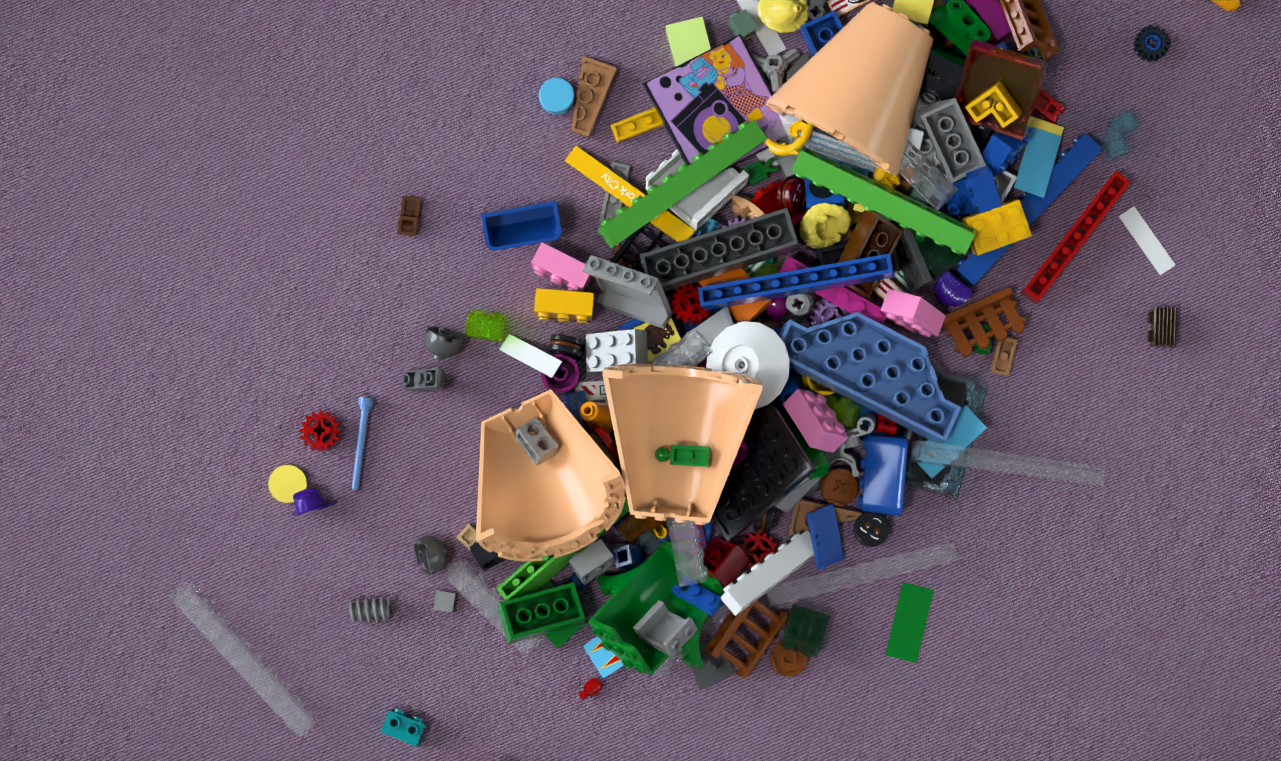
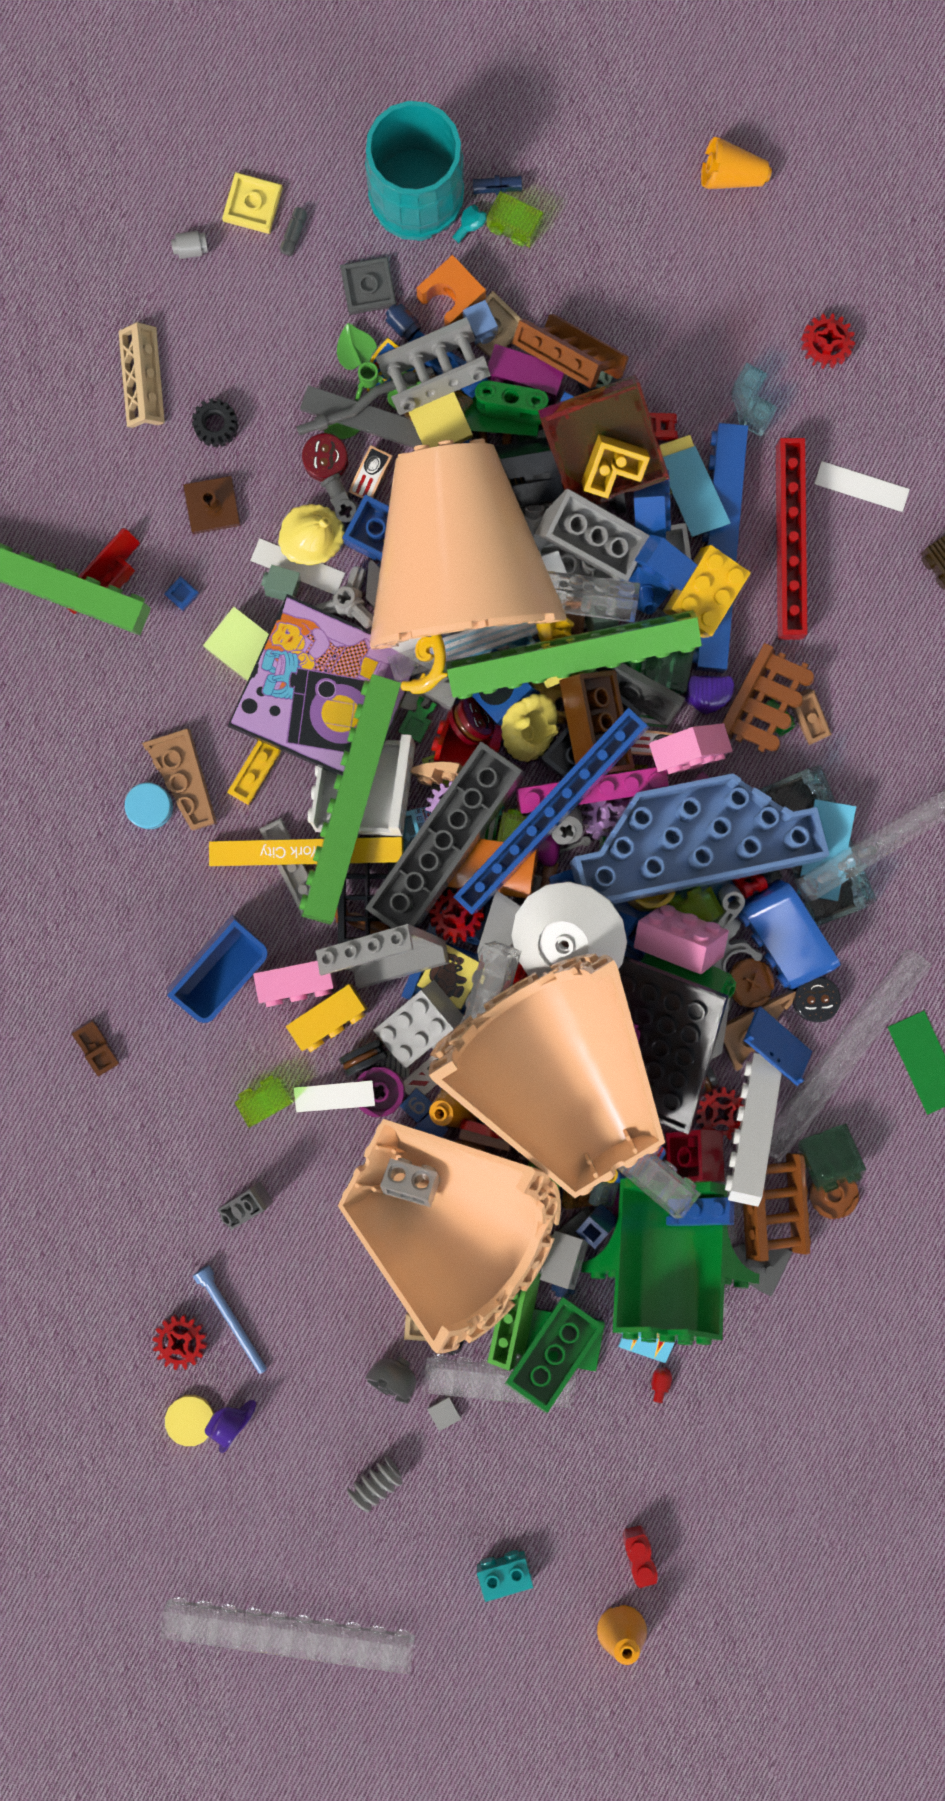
camera: 40 degrees left, 5 degrees up
(442, 343) = (233, 1153): dark grey cylinder -> none
(664, 629) = (697, 1276): light grey panel -> none
(685, 455) = (581, 1088): green plate -> none
(1145, 50) = (712, 290): black bush -> none
(1199, 141) = (838, 338): none -> red gear

